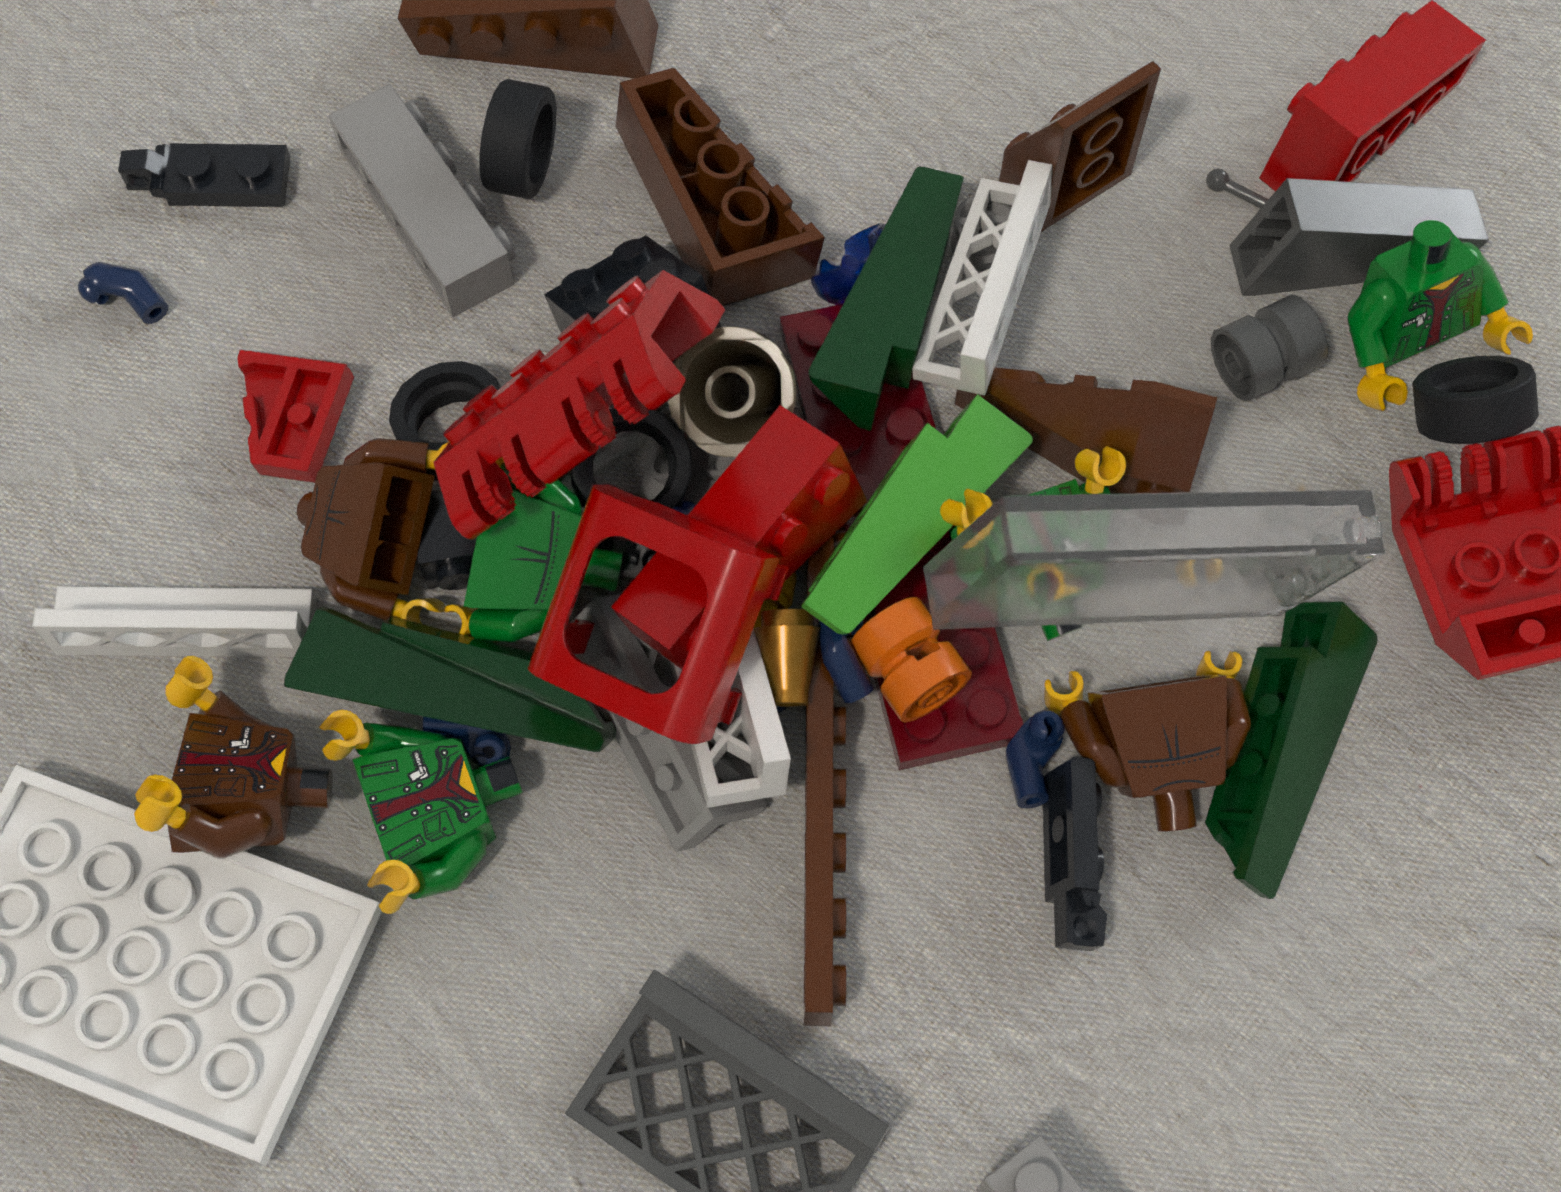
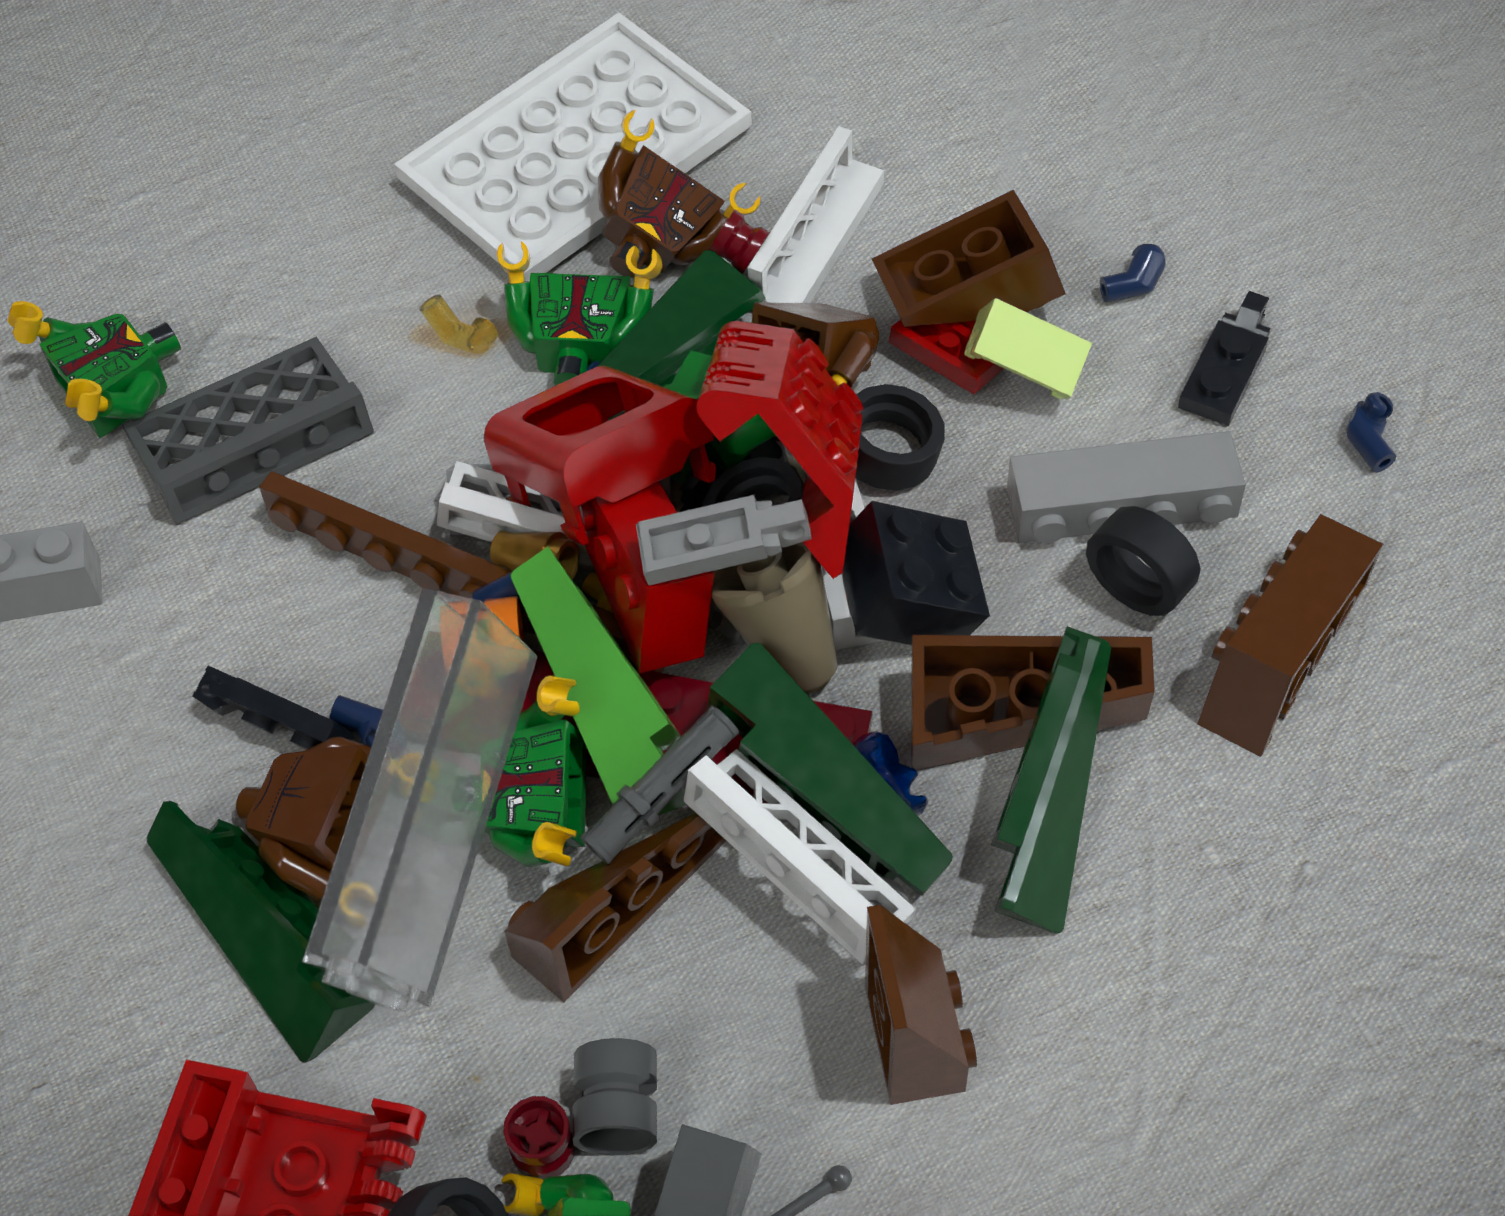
camera: 120 degrees right, 10 degrees down
(194, 423) = (968, 264): none -> reddish brown slope
(254, 39) = (1366, 430): none -> dark blue arm
(254, 664) = (738, 241): none -> dark red wheel
(292, 327) = (1028, 347): none -> yellowish green hinge
(491, 950) = (471, 338): none -> clear yellow arm
(762, 389) = (718, 537): none -> light grey hinge
(796, 125) = (1051, 786): none -> dark green wedge
(997, 400) = (642, 802): none -> dark grey pin
(1335, 393) = (539, 1123): none -> dark red wheel

